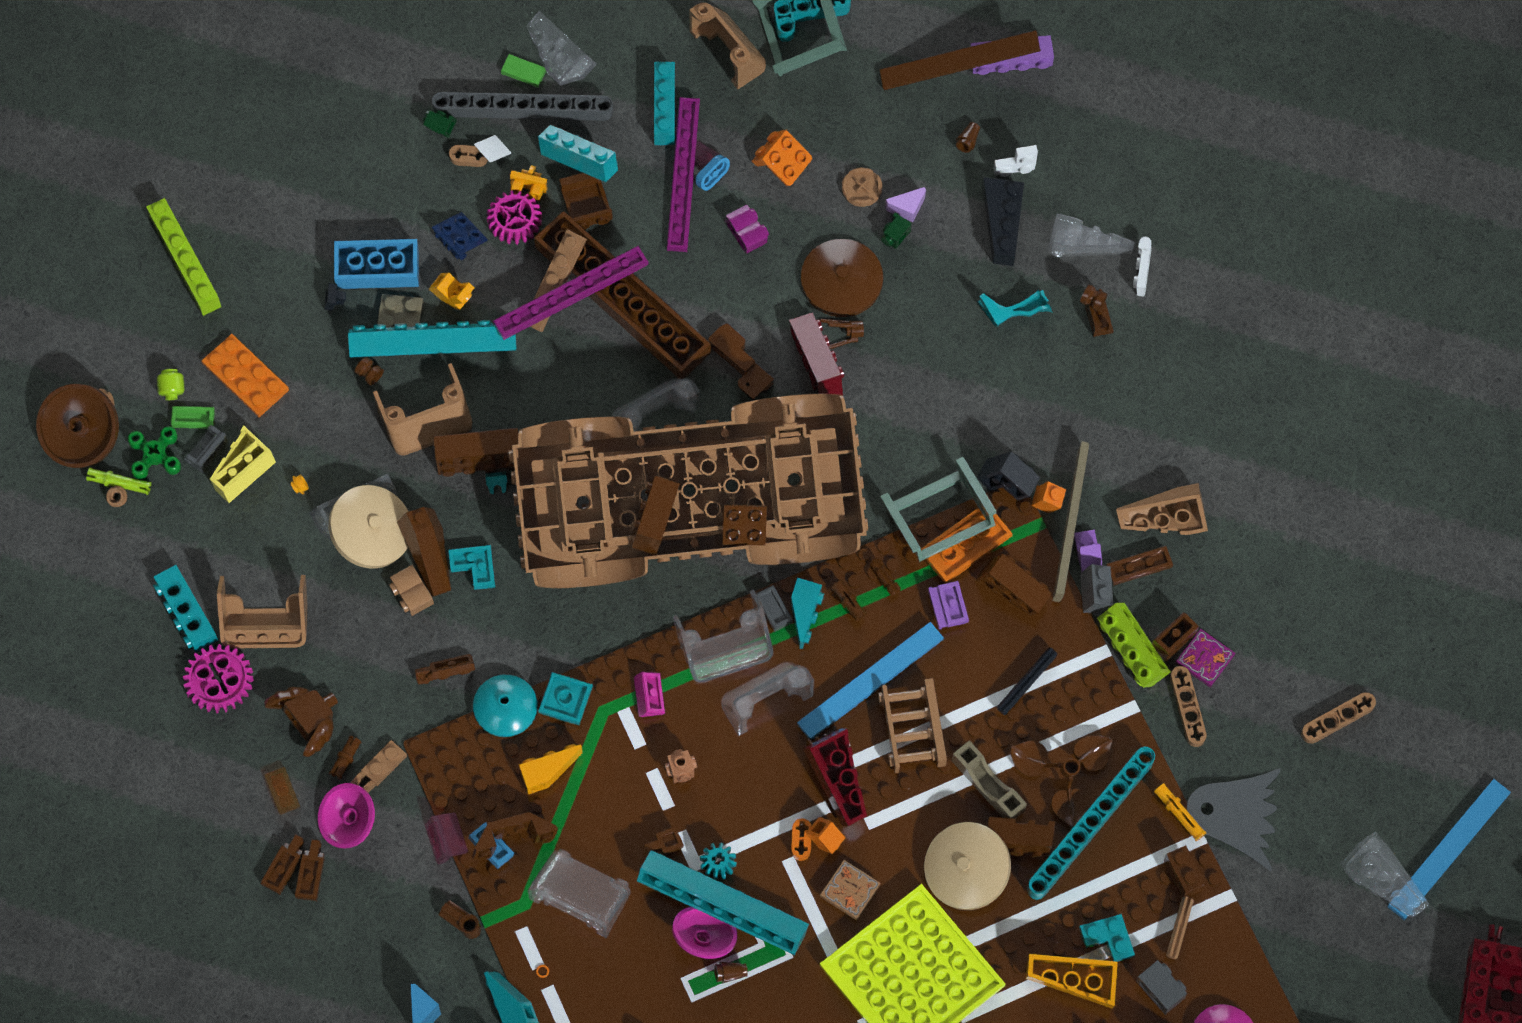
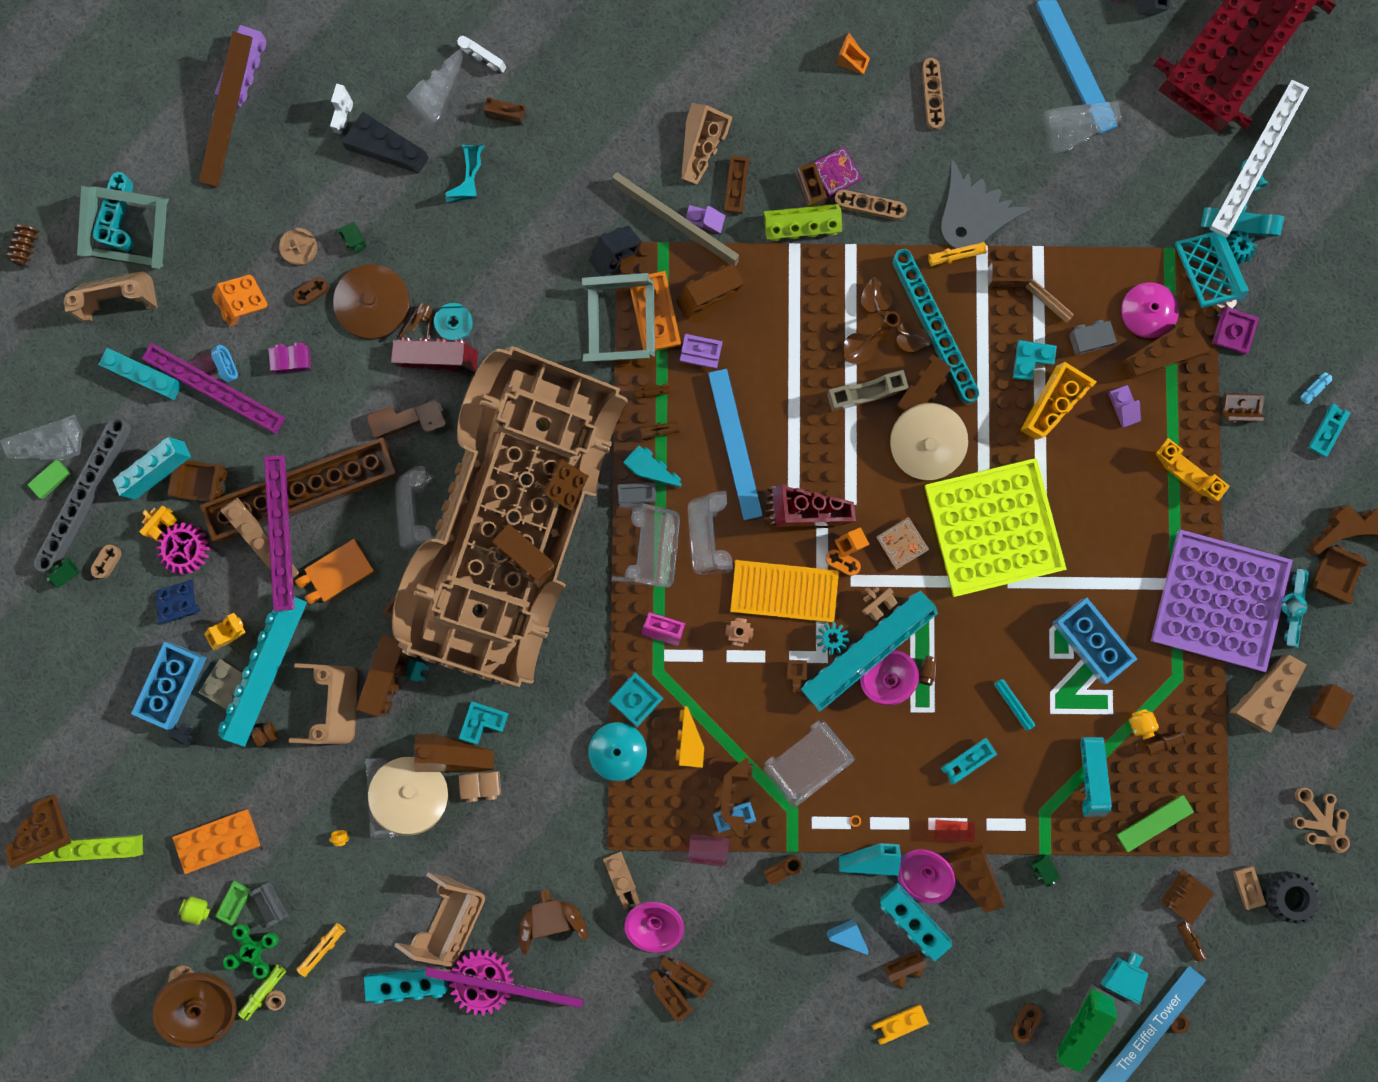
camera: 65 degrees left, 15 degrees up
(184, 214) = (39, 834): none -> reddish brown plate
(192, 518) = (335, 932): none -> light orange pin
(225, 697) = (503, 986): none -> magenta tile
(242, 465) = (300, 882): light yellow wedge -> none
(282, 790) = (604, 969): clear orange plate -> none
(345, 757) = (600, 904): reddish brown pin -> none
(445, 668) = (562, 786): reddish brown hinge -> none
(492, 148) = (109, 538): white sticker -> none
(557, 365) = (336, 572): none -> orange tile
(744, 796) = (784, 591): none -> light orange window
(785, 894) = (872, 609): none -> medium nougat hips
(826, 215) = (313, 295): none -> reddish brown beam
(858, 372) = (445, 315): none -> teal plate
(906, 204) = (332, 217): lavender slope -> none
(930, 713) = (804, 415): medium nougat fence -> none
(967, 139) = (297, 139): reddish brown cone -> none
(1027, 681) = (793, 320): black axle -> none
(1048, 497) = (647, 227): orange brick -> none
(1093, 298) = (491, 108): reddish brown wheel -> none
(1096, 589) = (743, 227): dark grey brick -> none
(1336, 618) = (852, 56): none -> orange slope

